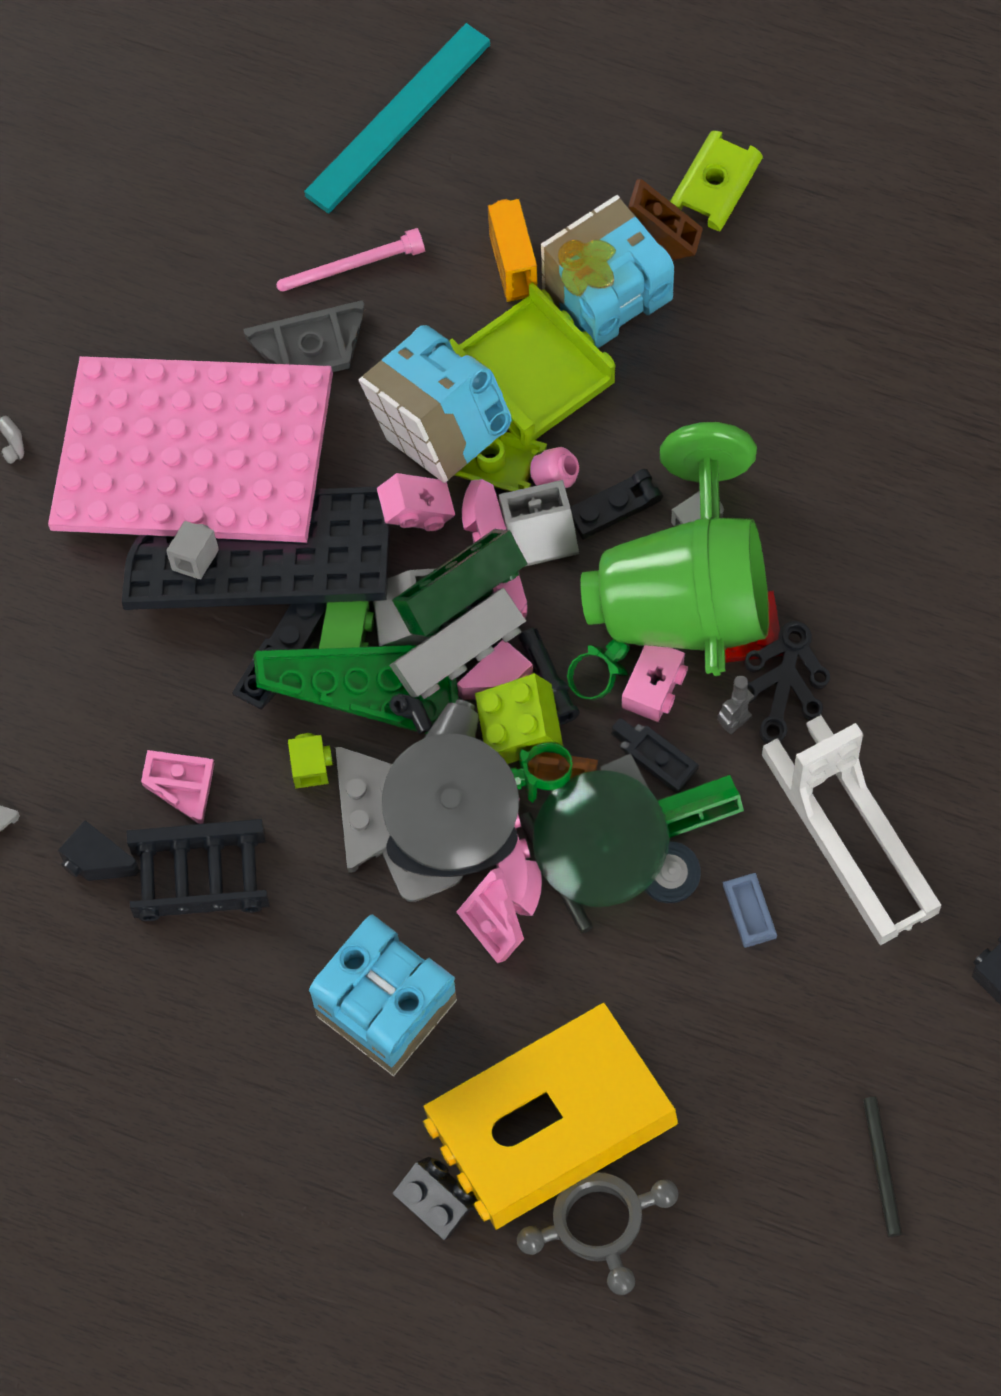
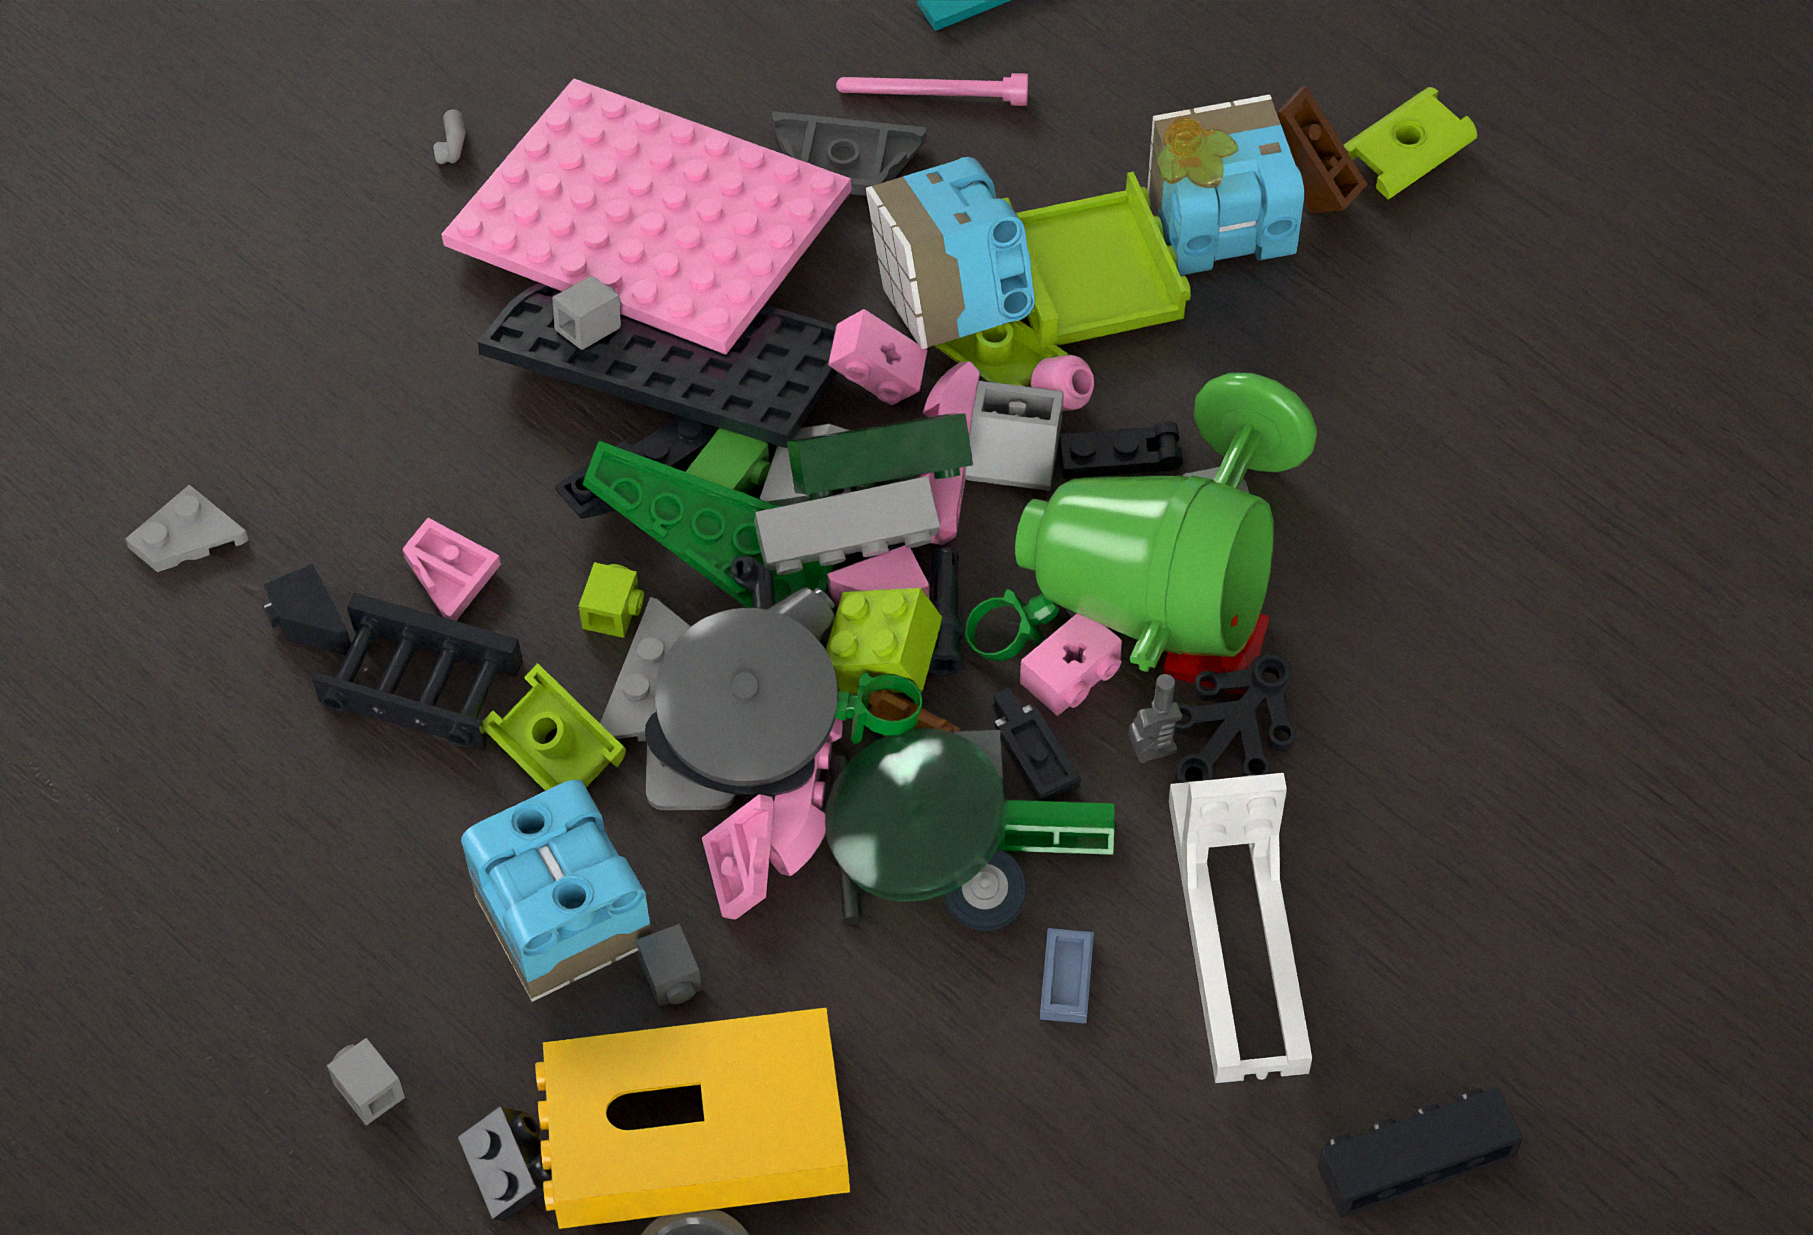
camera: 20 degrees right, 10 degrees down
(310, 1180) = (365, 1080): none -> light grey brick
(342, 883) = (576, 752): none -> lime piece
(480, 1014) = (669, 966): none -> dark grey brick
(512, 248) = (1125, 127): light orange brick -> none

